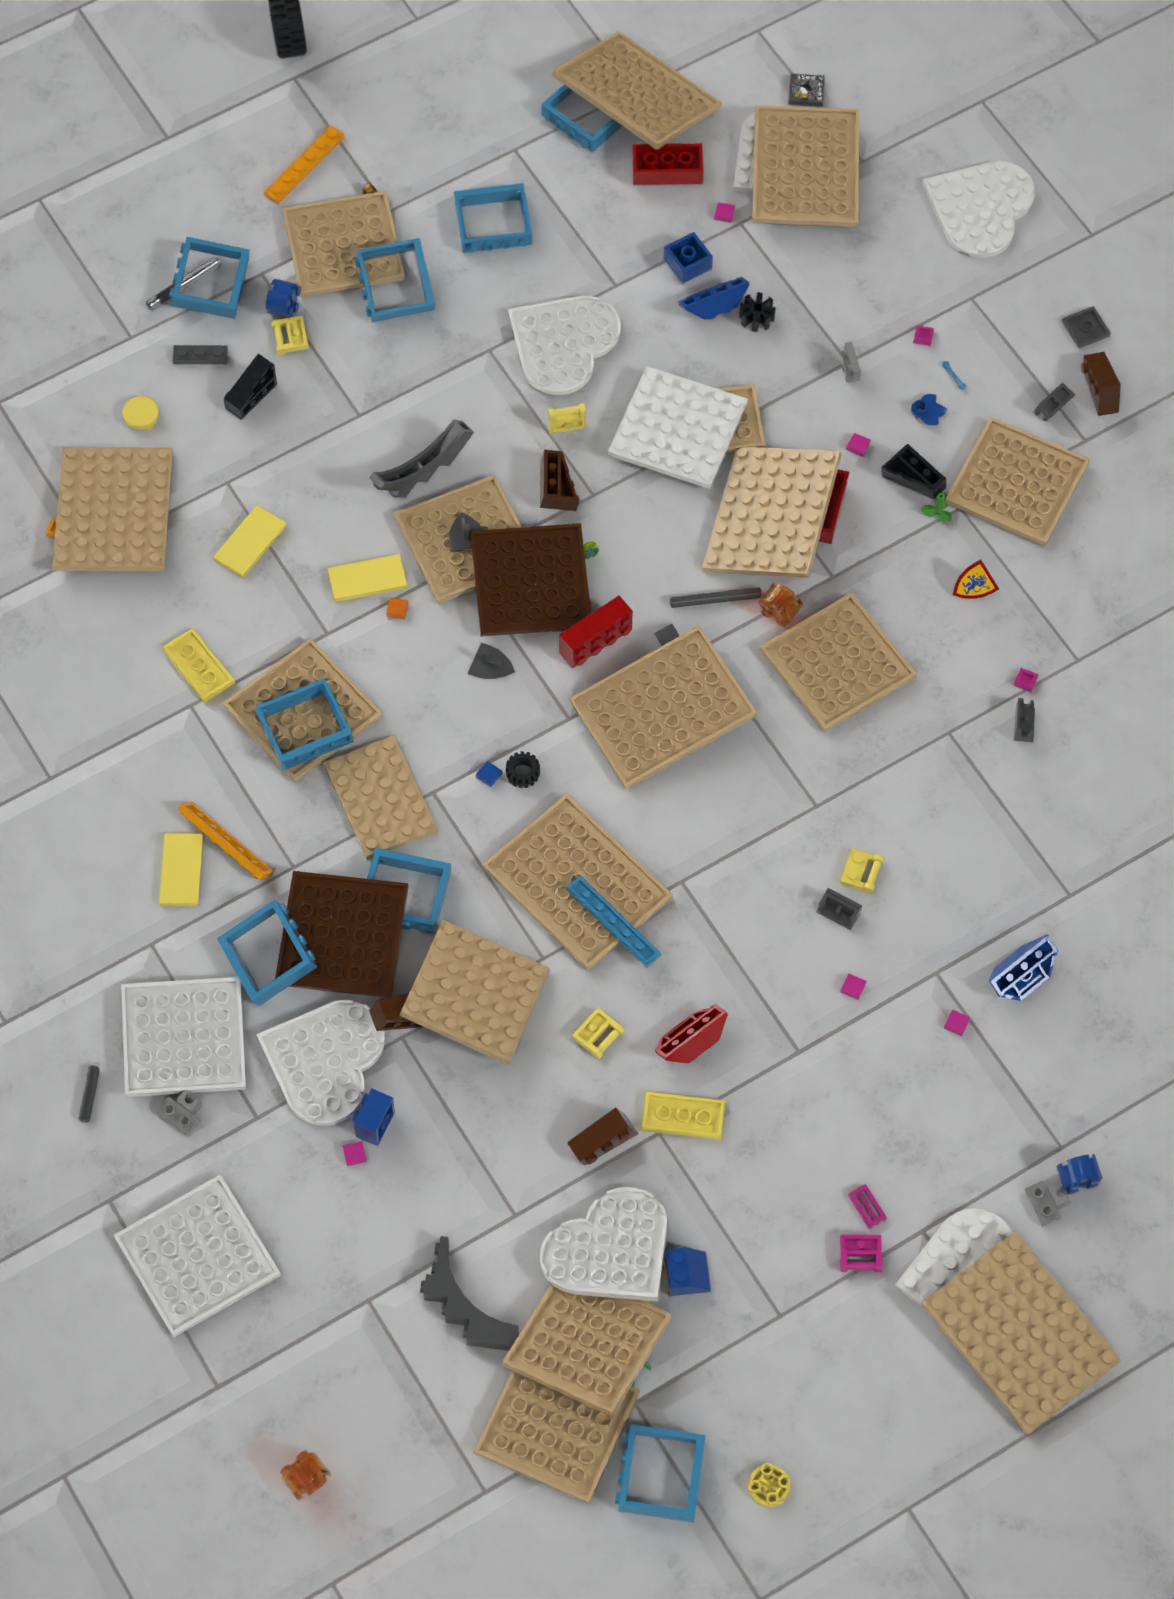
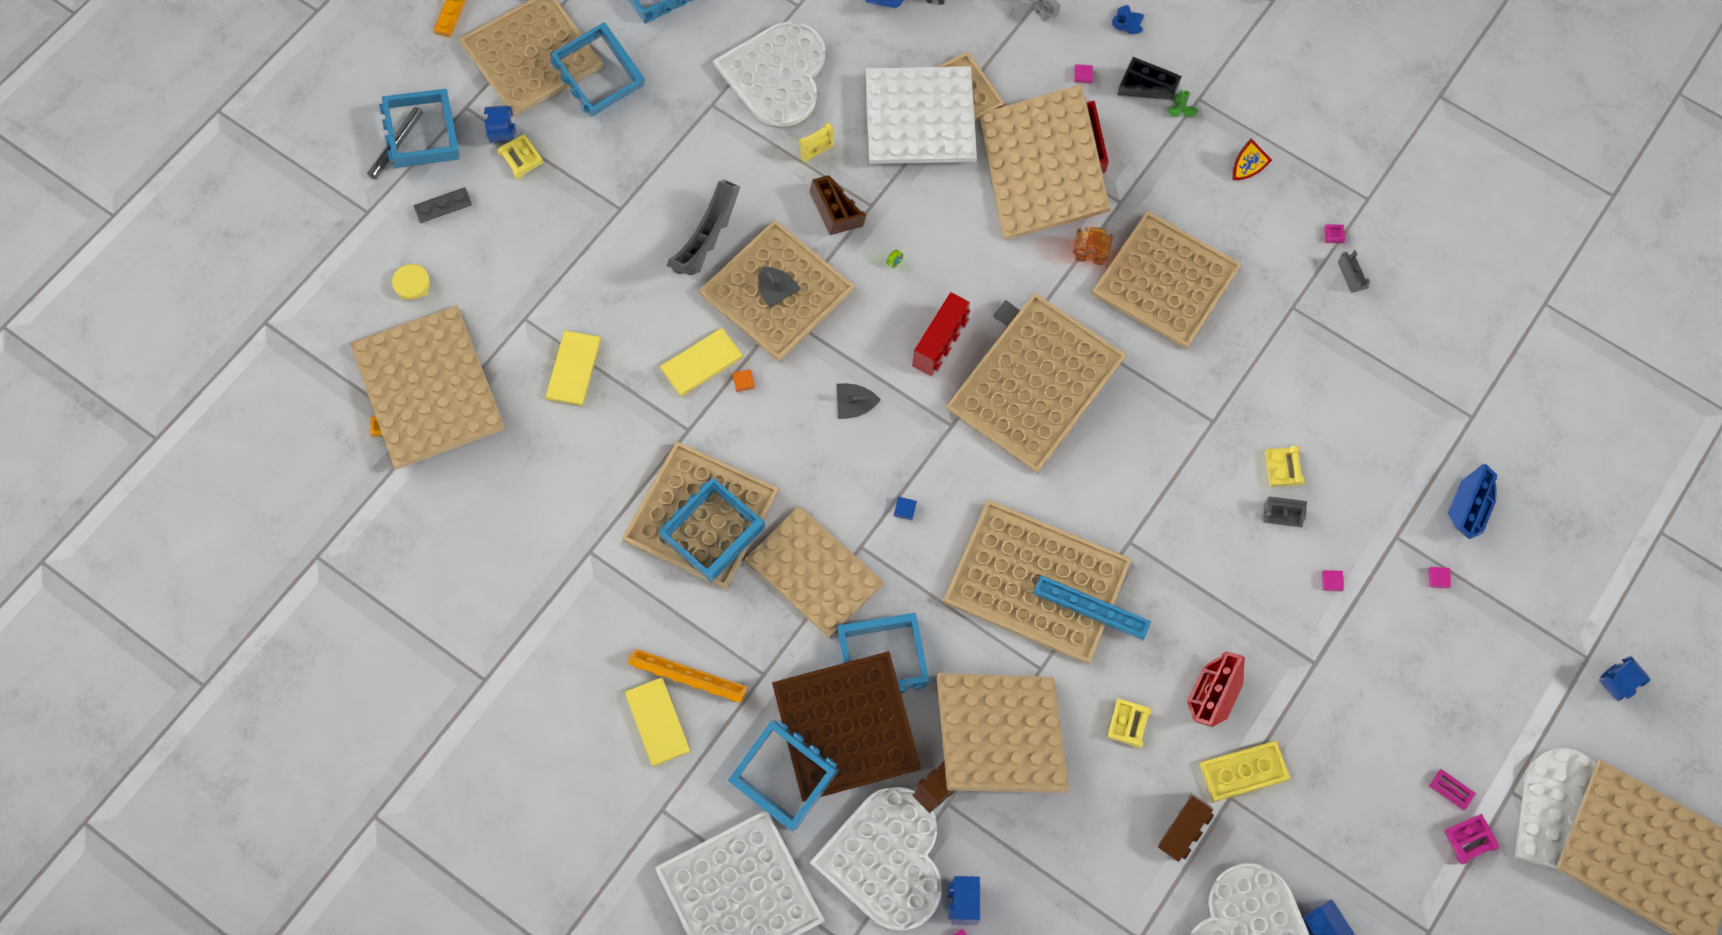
camera: 25 degrees left, 5 degrees up
(198, 665) = (579, 509): light yellow tile -> none
(251, 387) = (507, 218): black wedge -> none
(522, 759) = (935, 503): black tyre -> none
(530, 579) = (856, 307): reddish brown plate -> none
(715, 597) = (1028, 260): dark grey axle -> none
(1017, 481) = (1237, 57): tan plate -> none
(1046, 1201) = (1604, 716): light grey plate -> none

